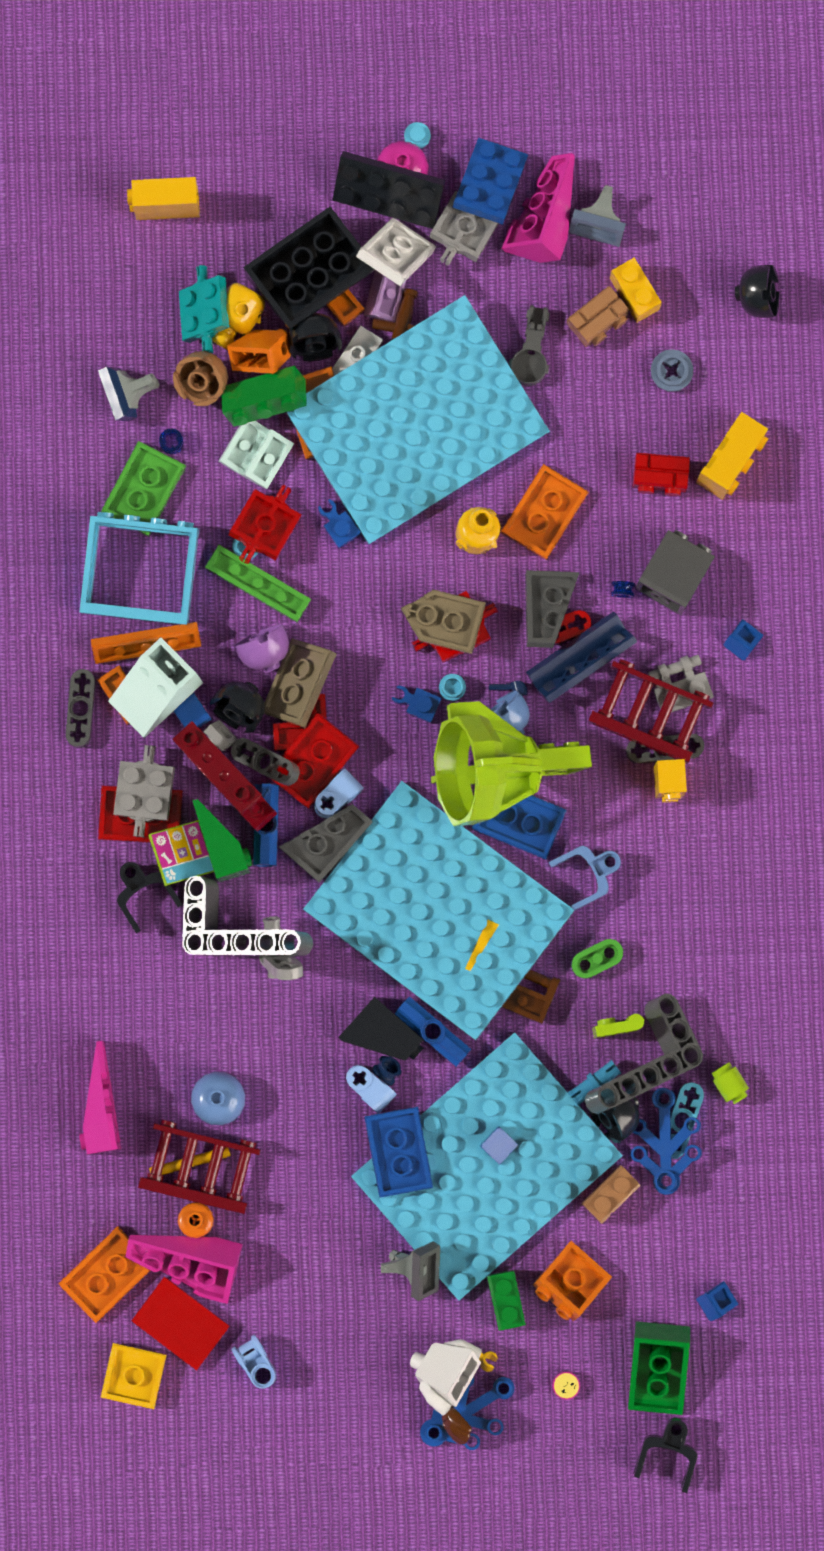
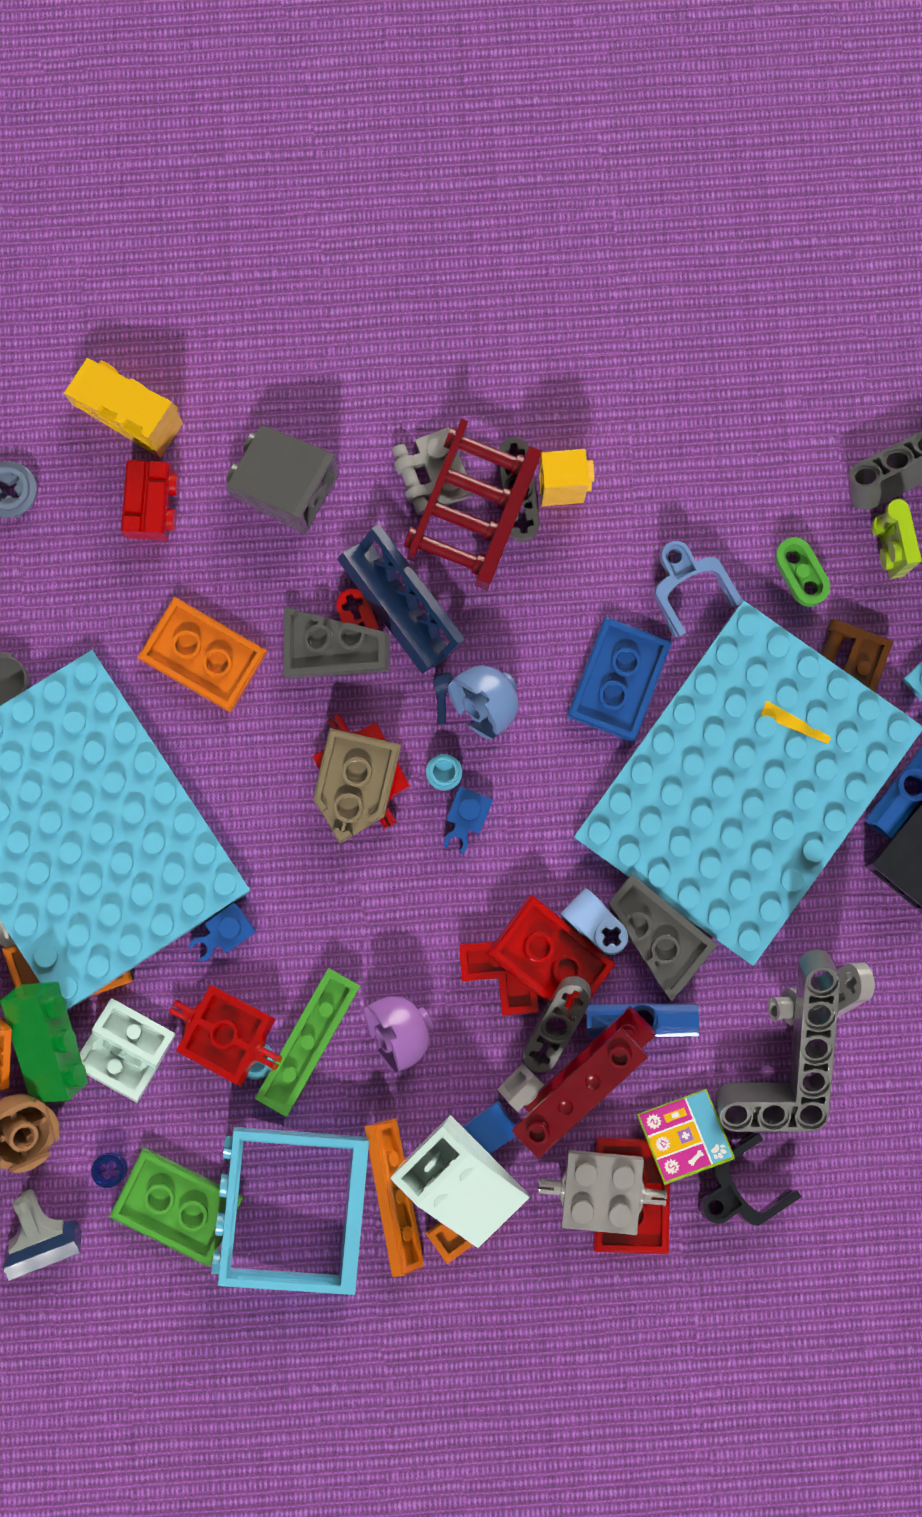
camera: 90 degrees left, 0 degrees up
(89, 689) = (515, 1278): dark grey beam -> none
(225, 851) = (678, 1079): green slope -> none
(239, 705) = (477, 1062): black cylinder -> none
(298, 683) = (446, 981): dark tan tile -> none
(477, 530) = (230, 741): yellow piece -> none
(504, 767) = (554, 690): lime plate -> none
(622, 589) = (306, 548): clear blue bush -> none
(743, 640) = (371, 392): blue slope -> none

